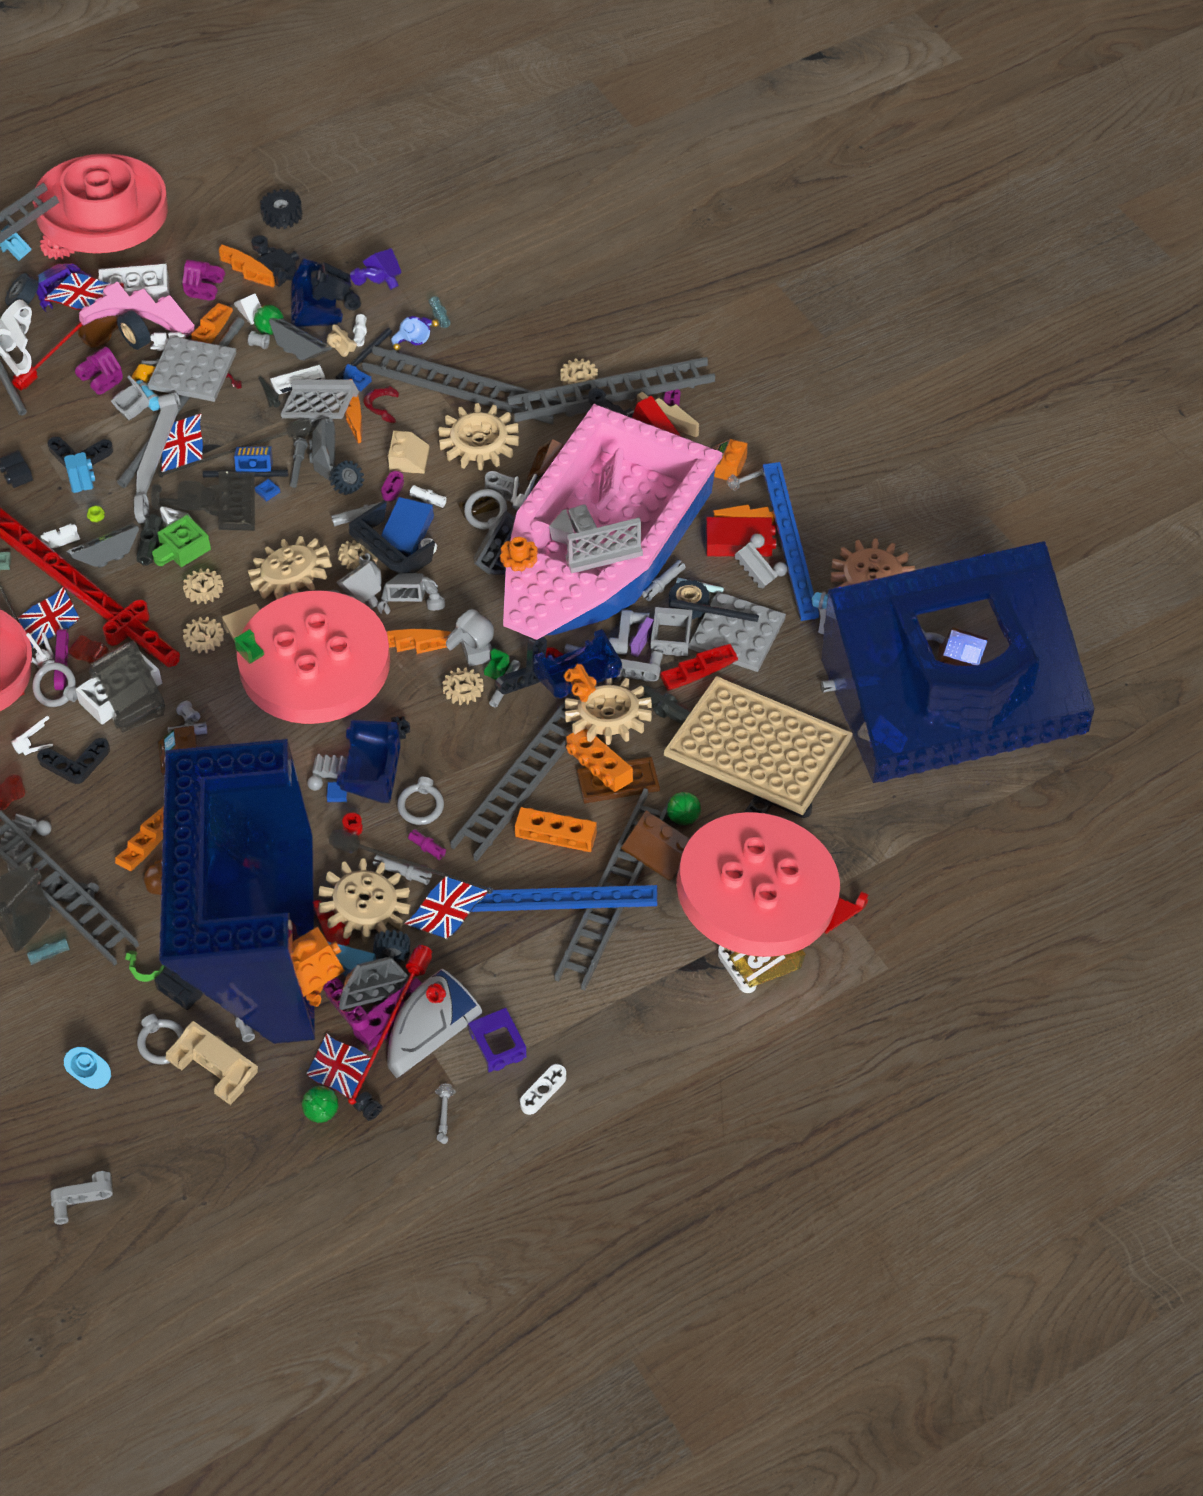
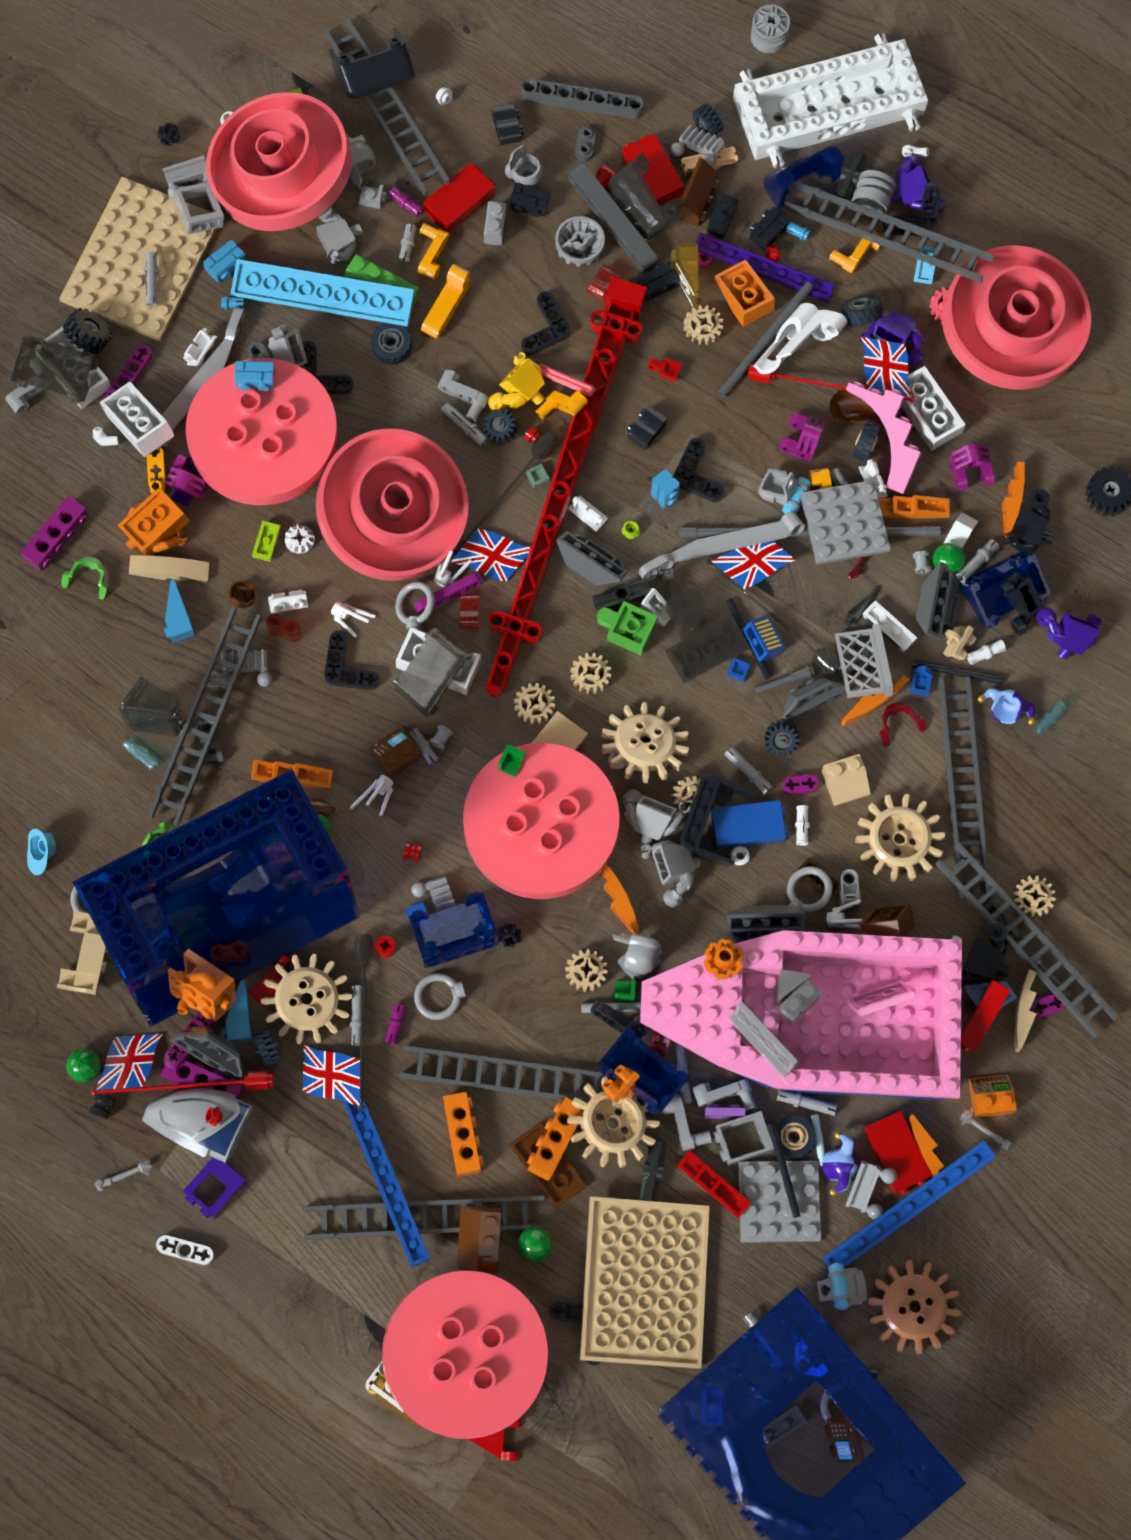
camera: 60 degrees right, 20 degrees up
(280, 302) = (981, 557): none -> light grey pin
(728, 574) = (841, 1163): none -> piece

